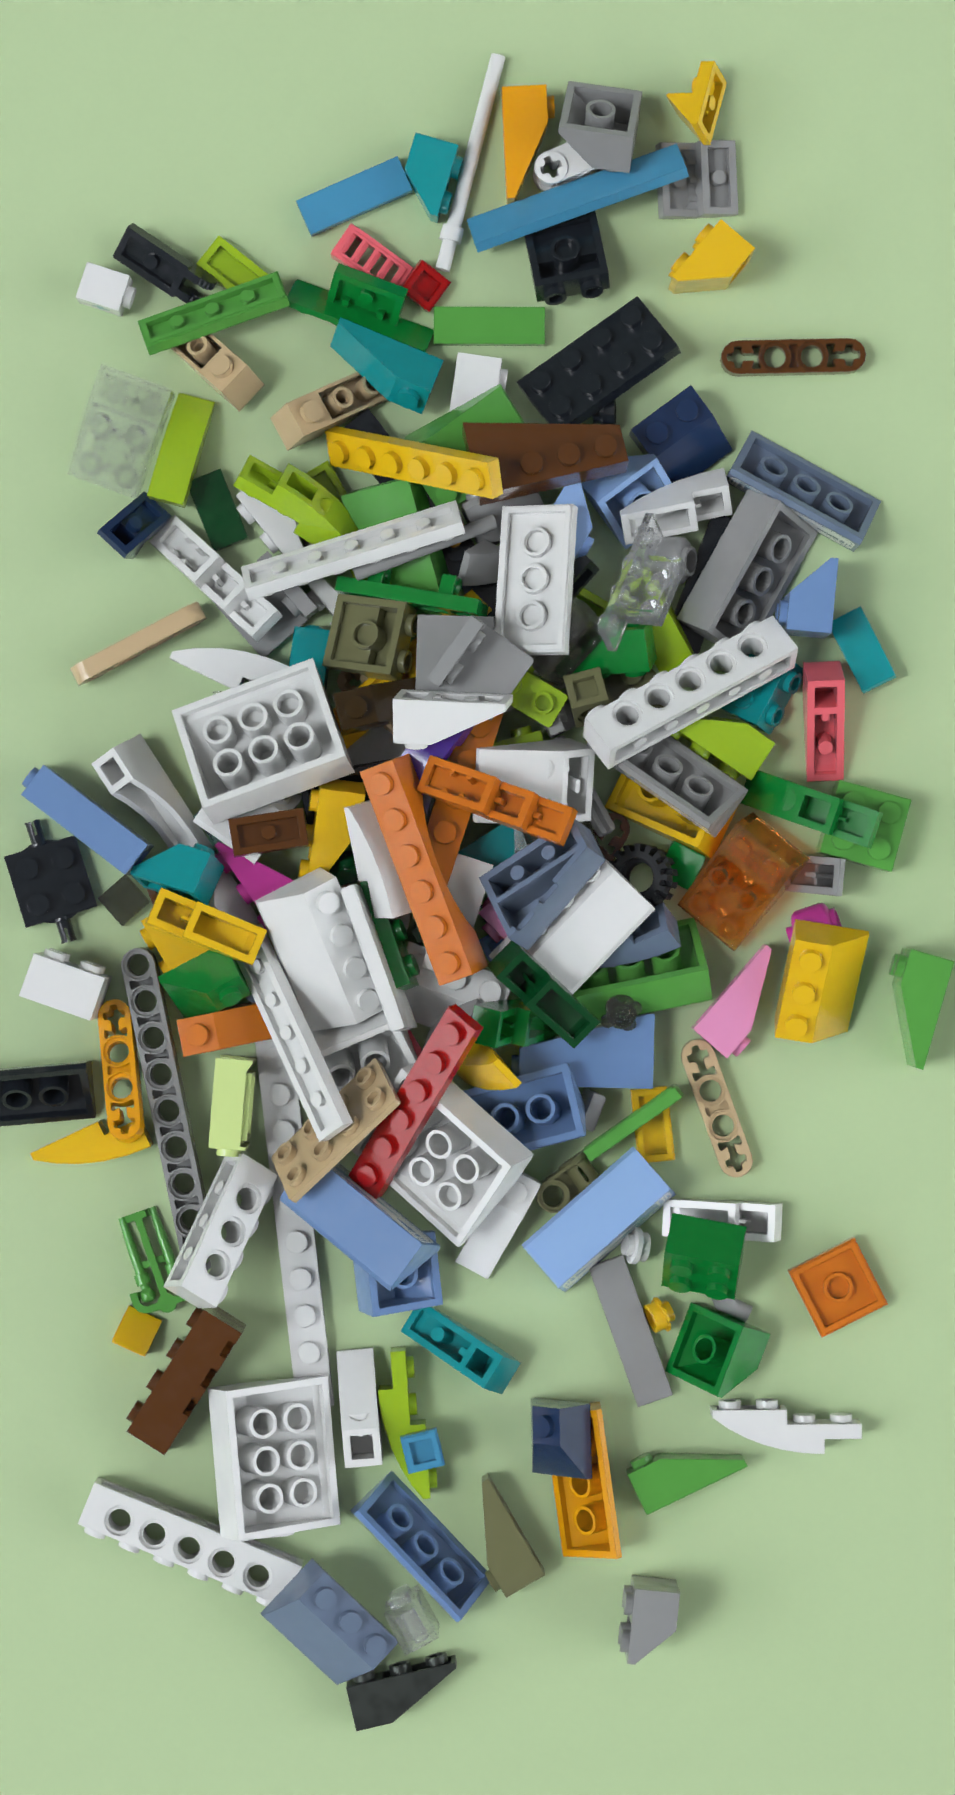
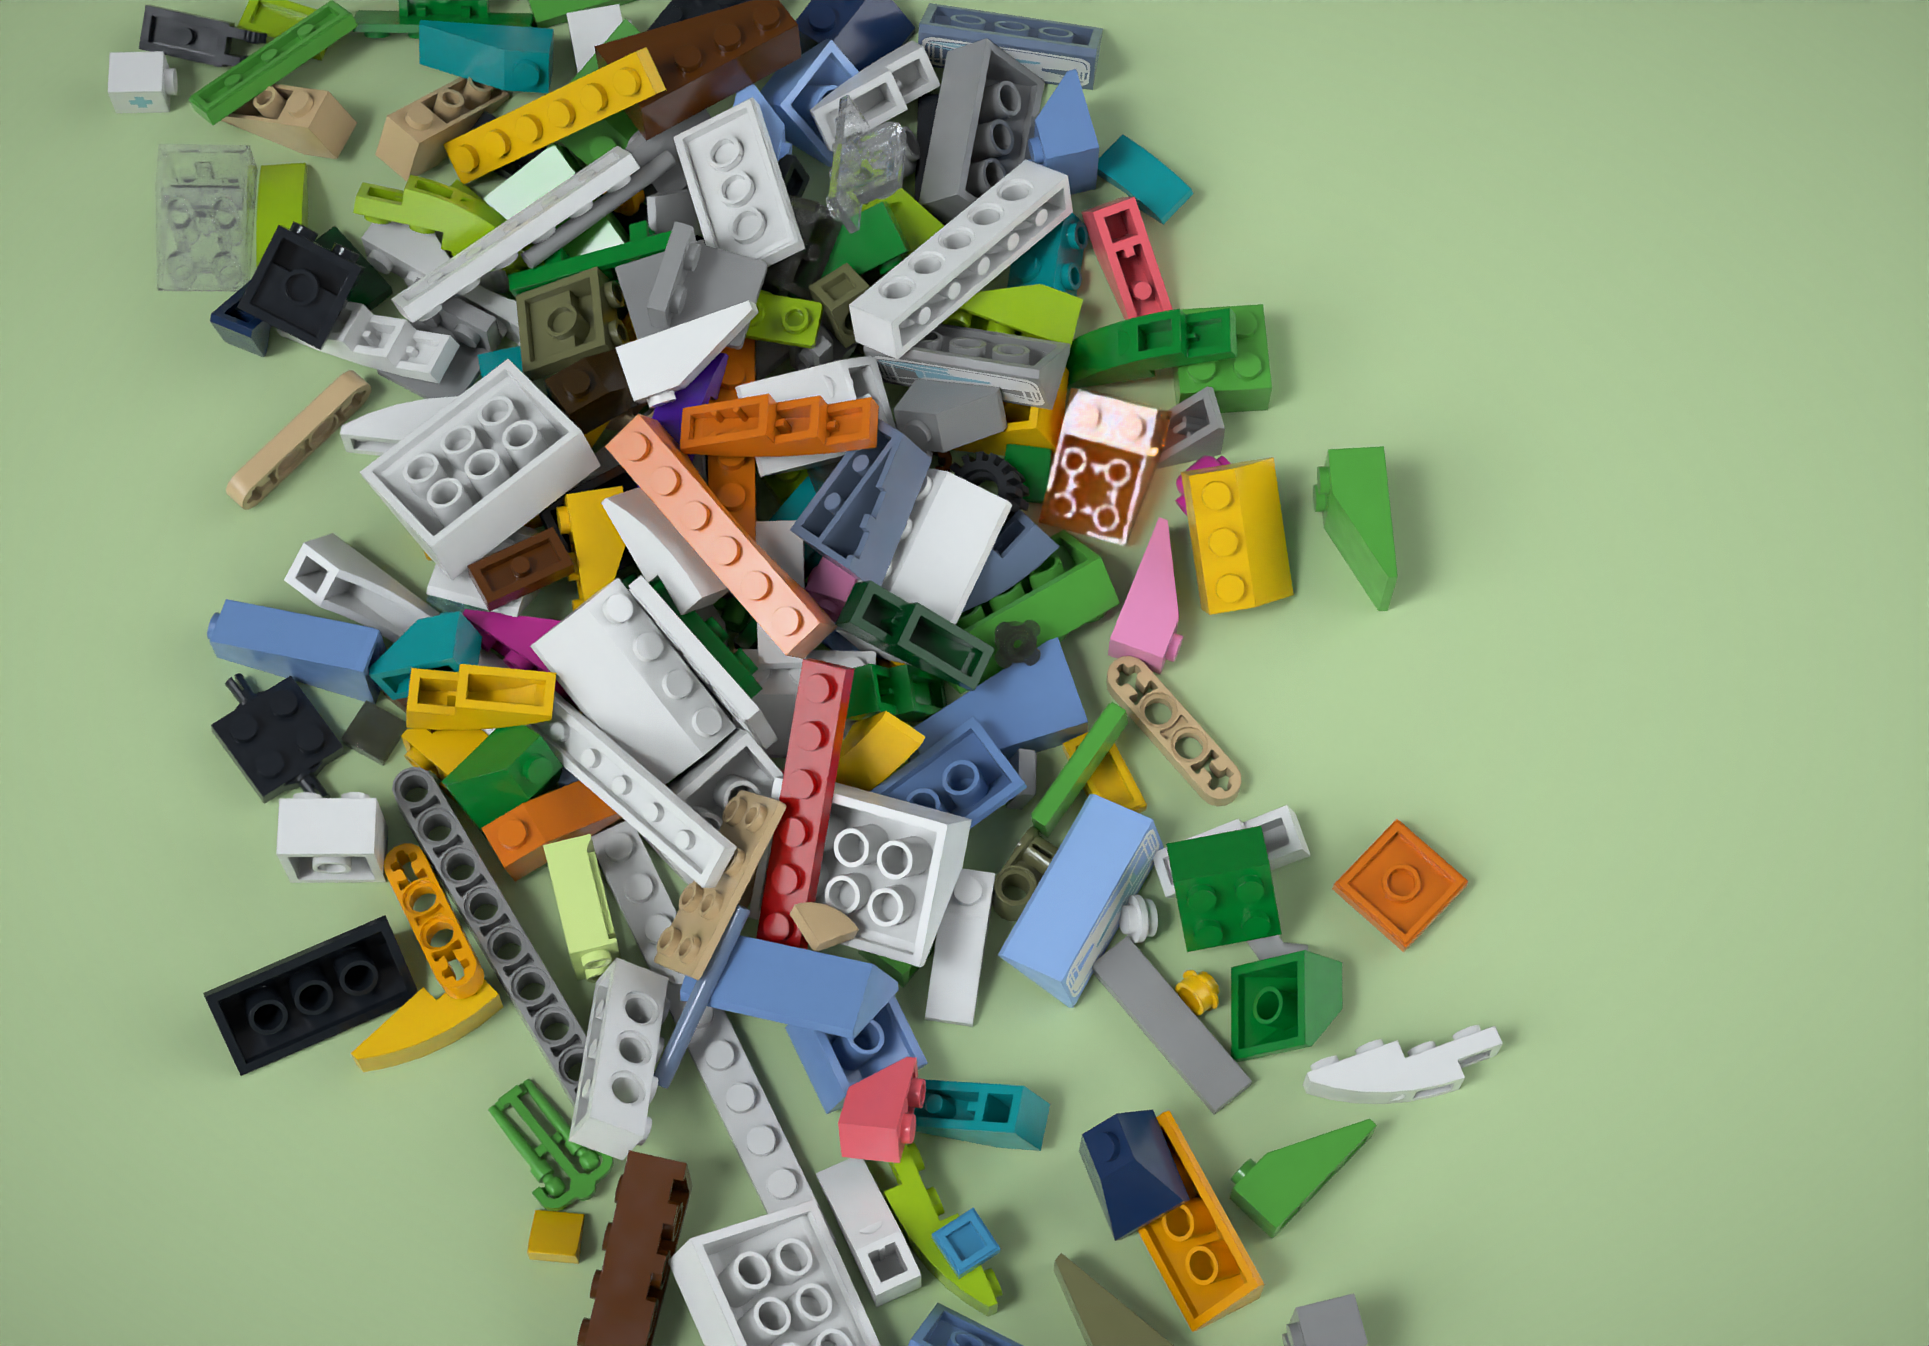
camera: 25 degrees left, 20 degrees down
(177, 529) = (302, 284): none -> black plate
(289, 1211) = (699, 999): none -> sand blue bar
(392, 1338) = (880, 1113): none -> coral slope
(398, 1191) = (823, 925): none -> tan tile
(633, 812) = (949, 414): none -> light grey slope

